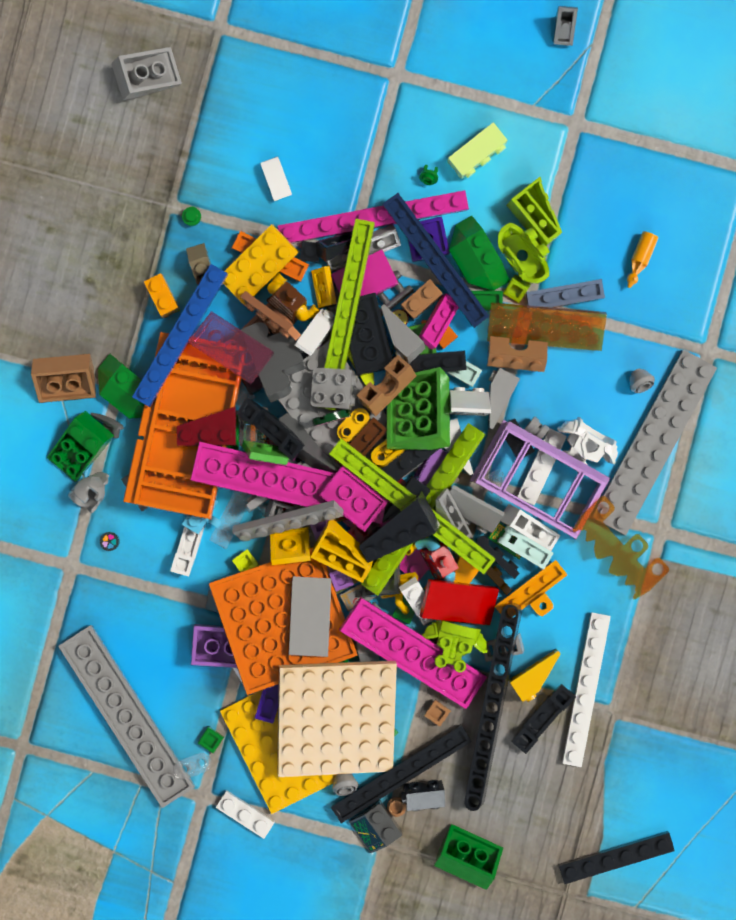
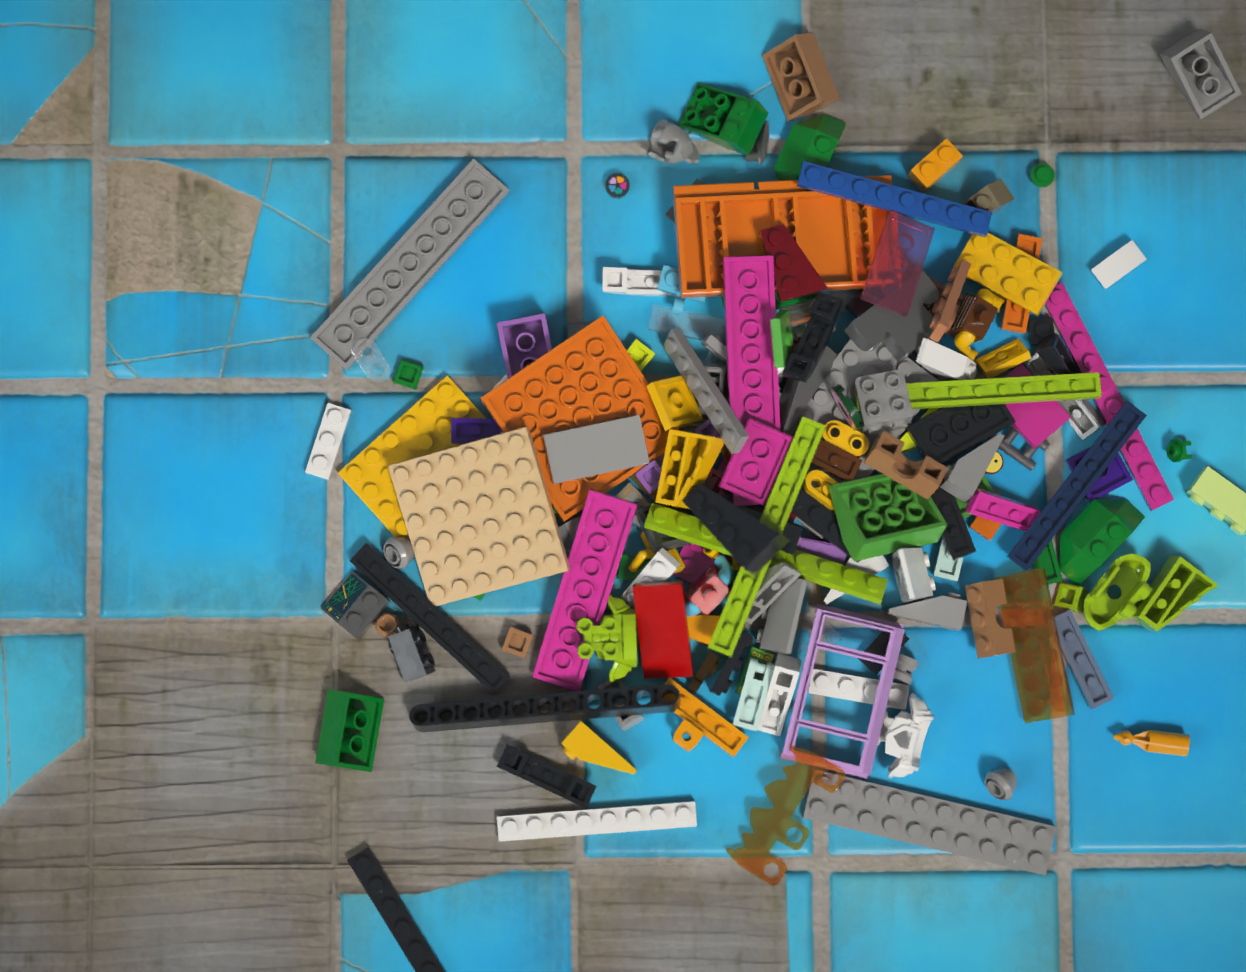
camera: 75 degrees right, 5 degrees down
(421, 300) = (1022, 482): medium nougat brick -> none

